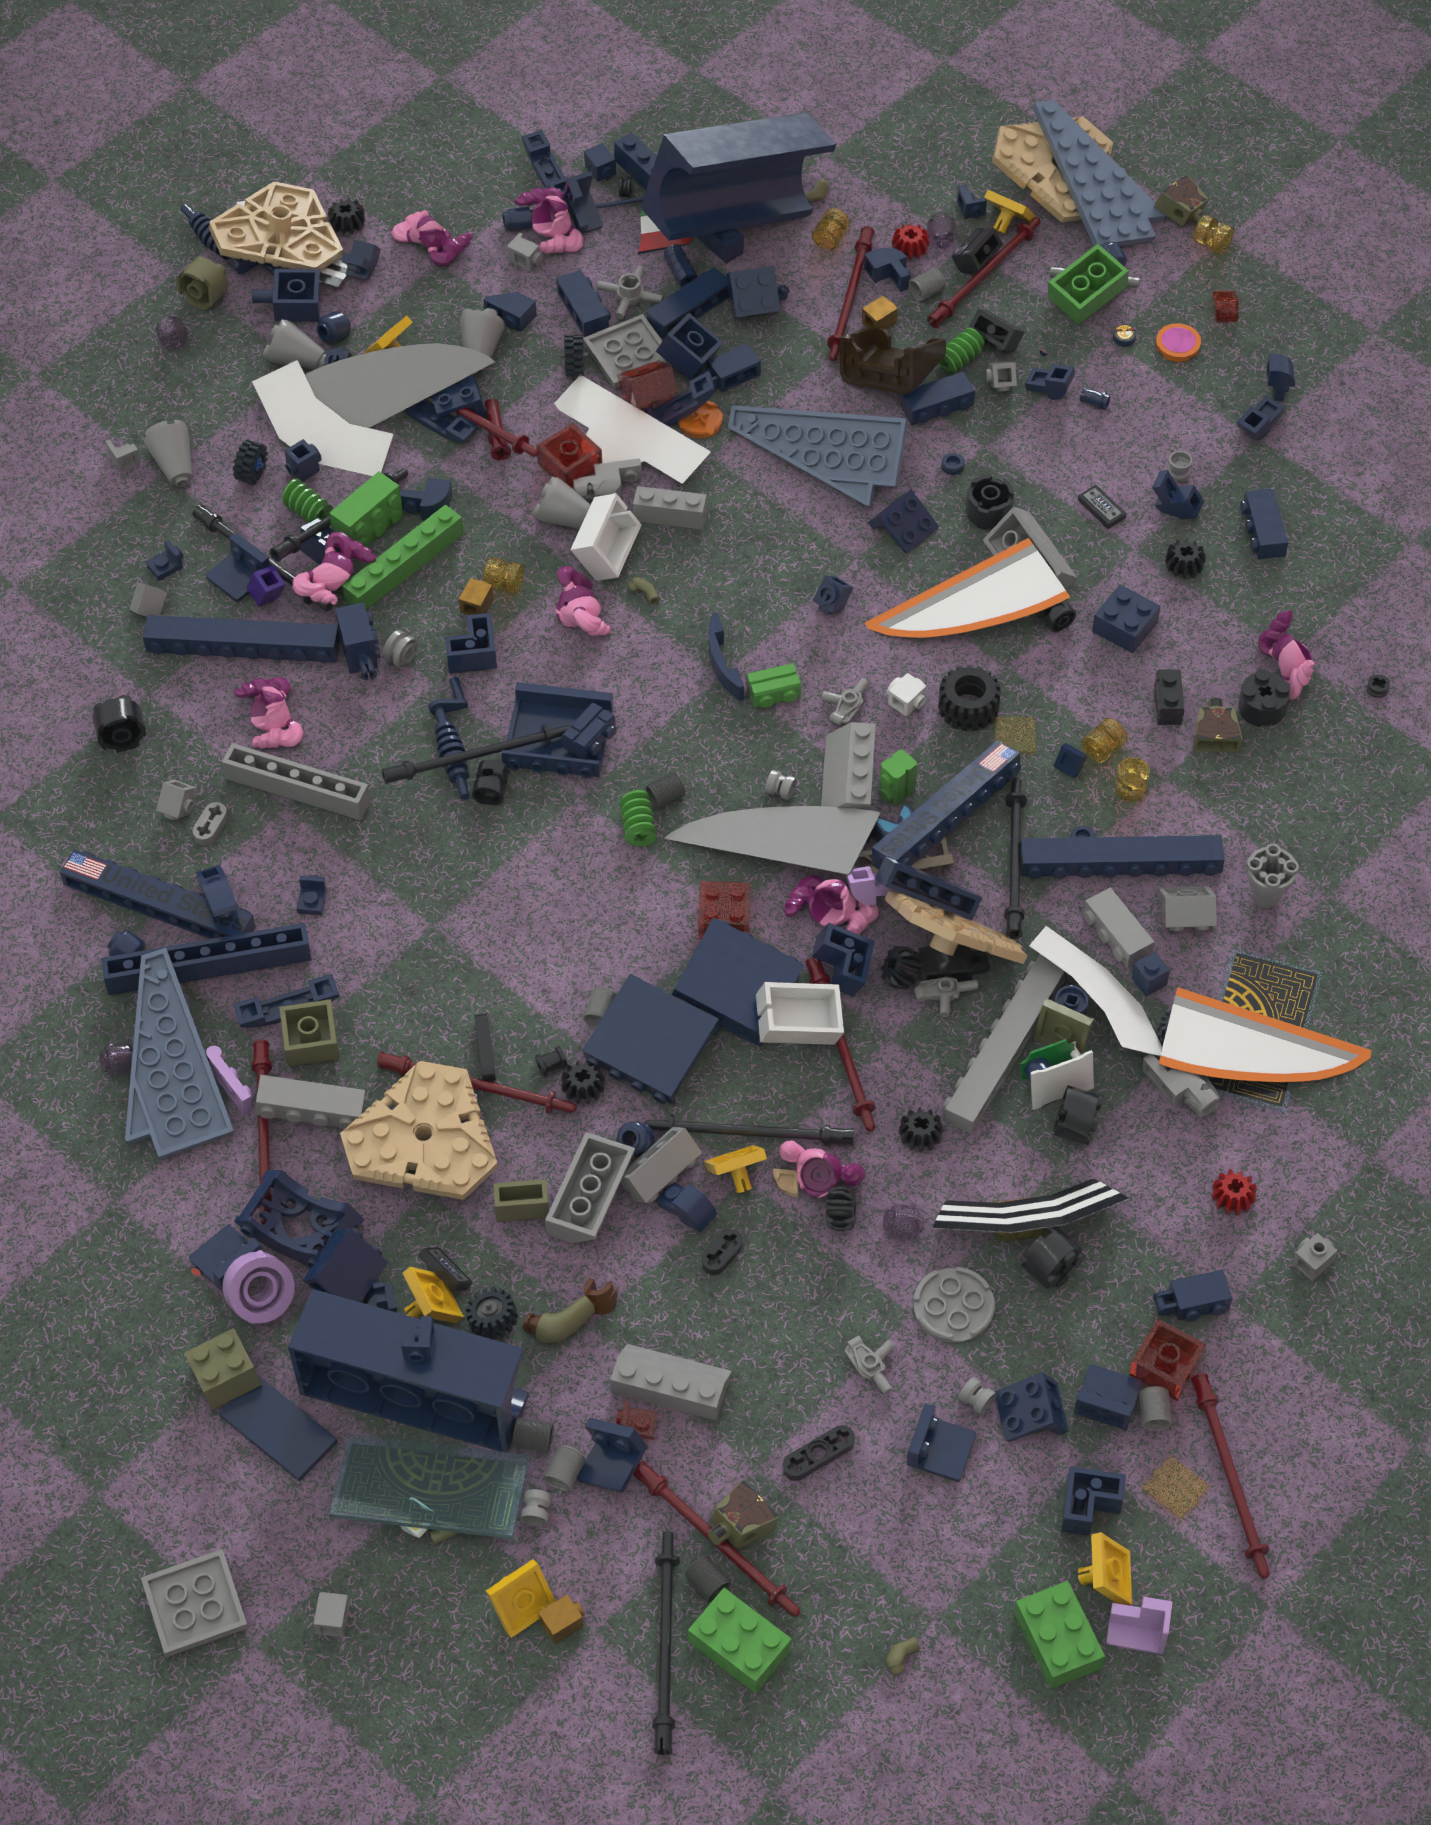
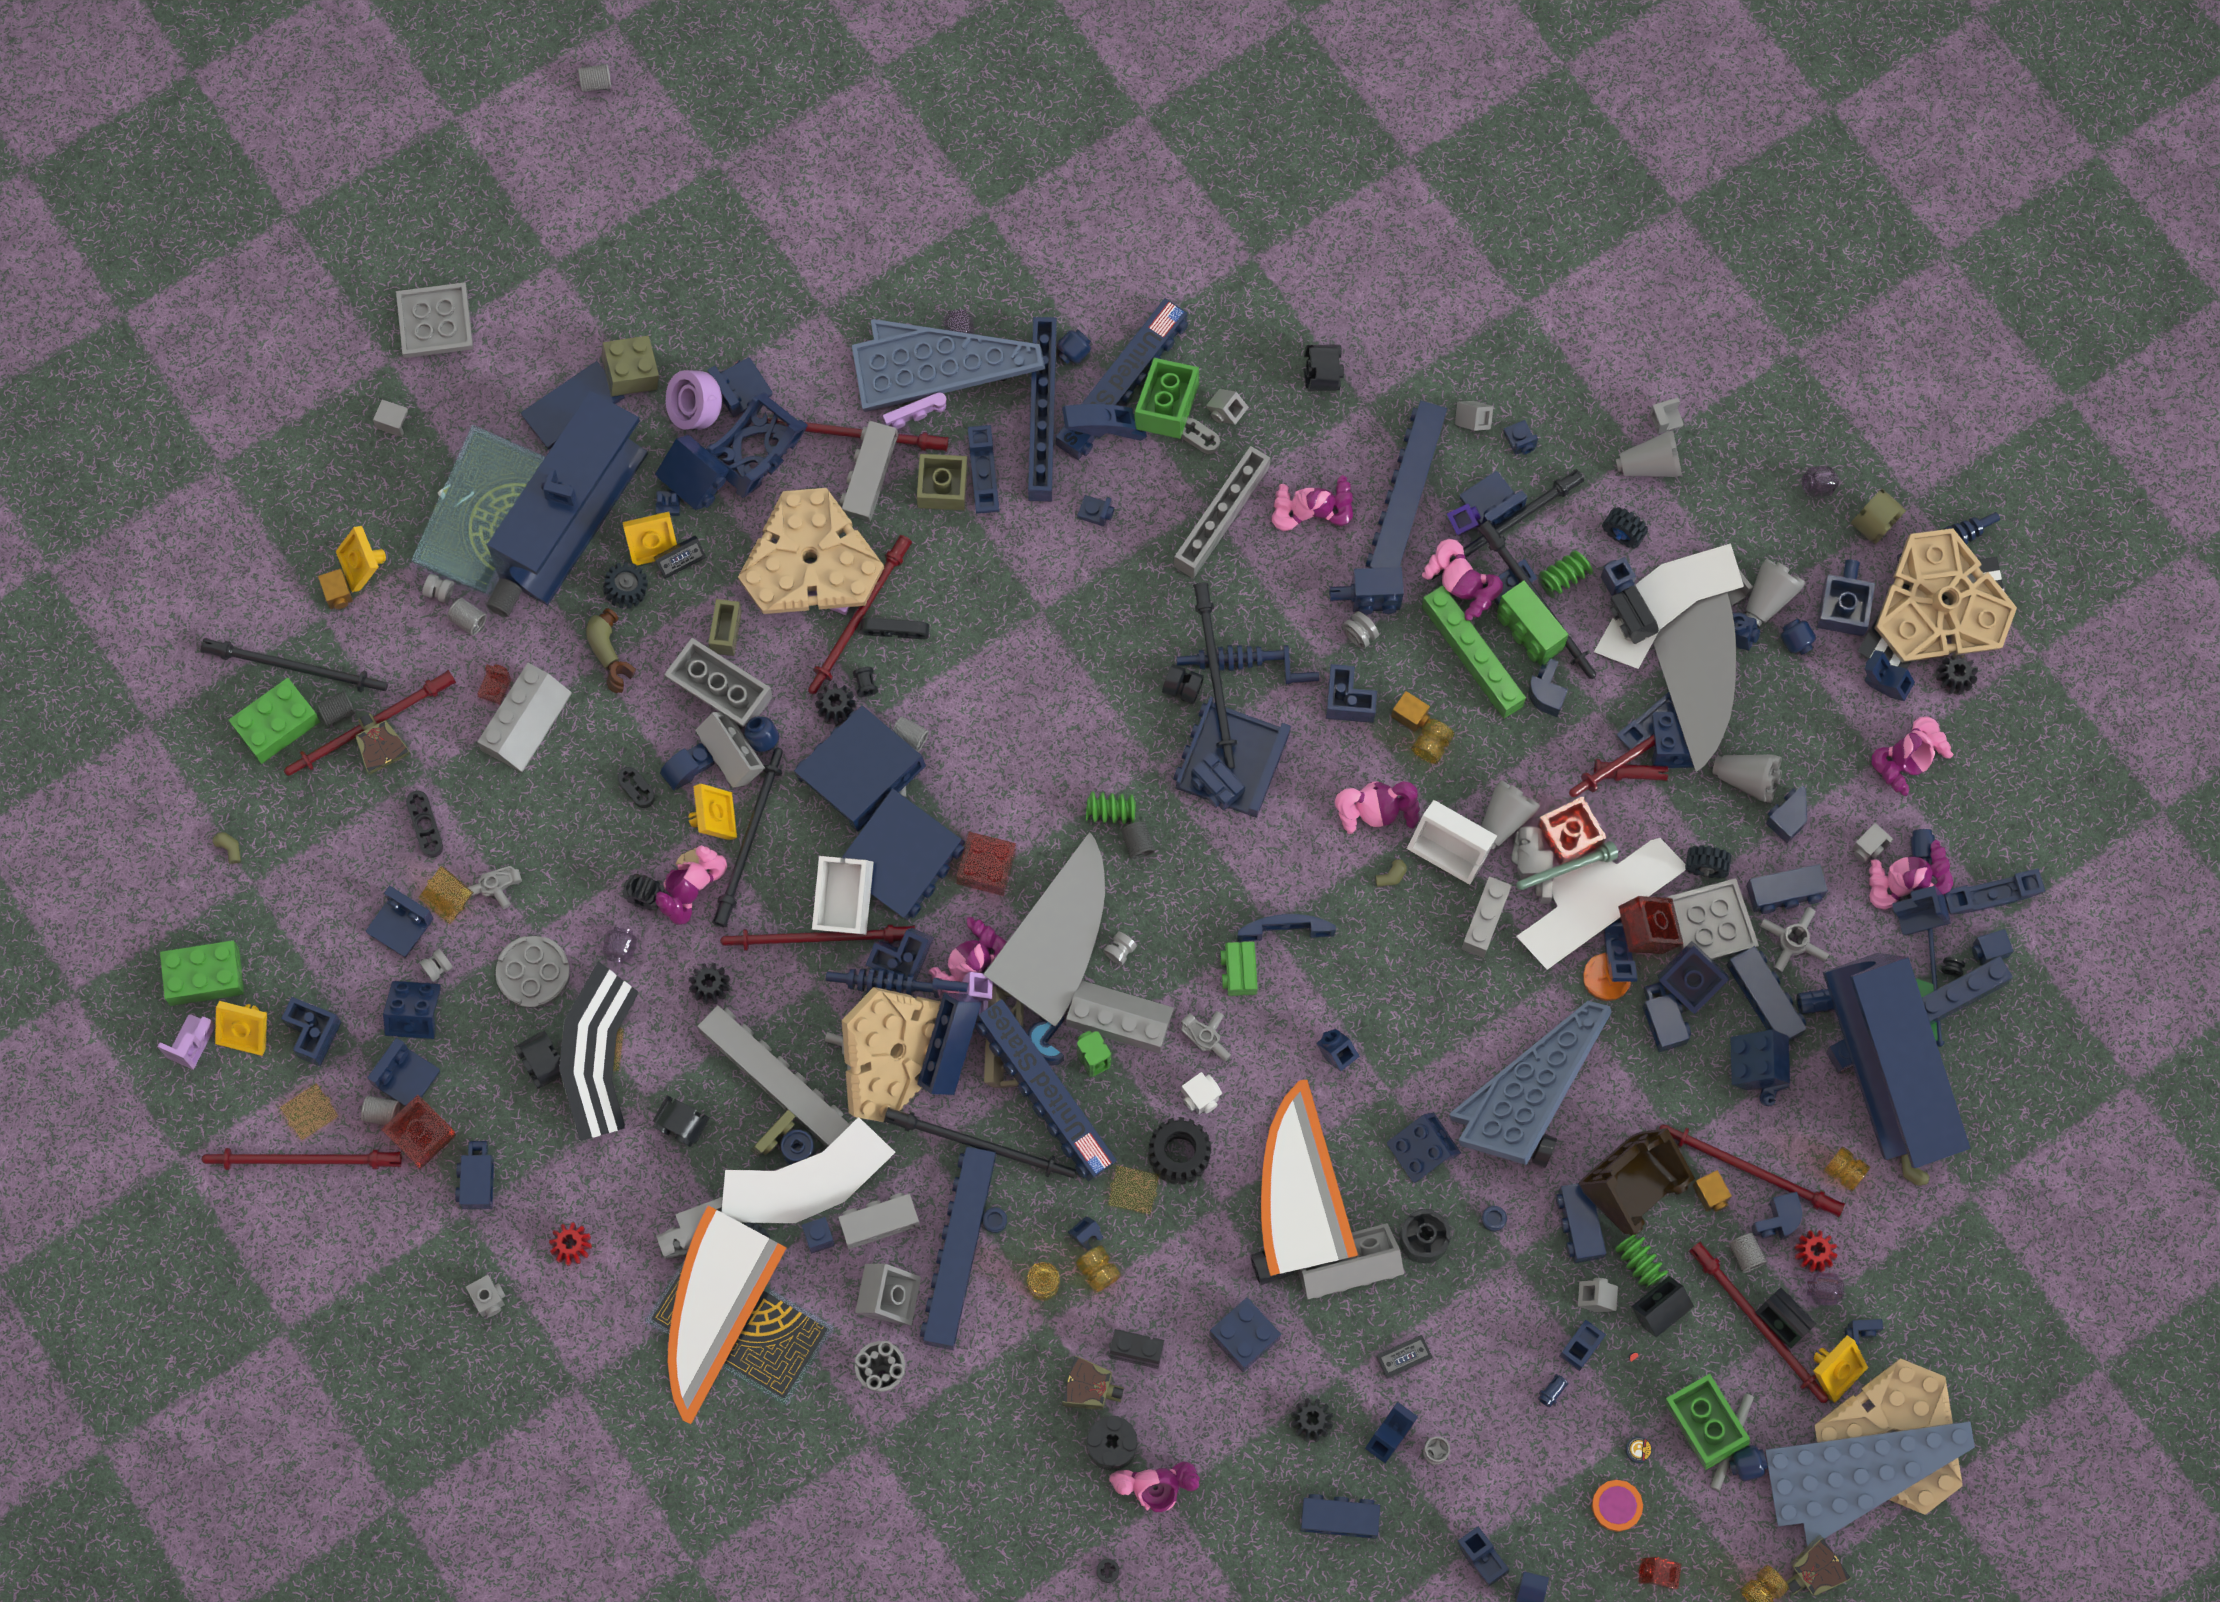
camera: 100 degrees right, 15 degrees up
(177, 846) = (1167, 398): none -> bright green brick
(340, 442) = (1634, 615): none -> black brick
(389, 339) = (1764, 684): yellow tile -> none
(611, 454) = (1606, 852): none -> sand green piece
(613, 1455) = (462, 653): dark blue bracket -> none
(880, 949) = (892, 983): none -> dark blue piece
(895, 1407) = (446, 894): none -> clear yellow piece
(1054, 1068) = (732, 1101): white piece -> none

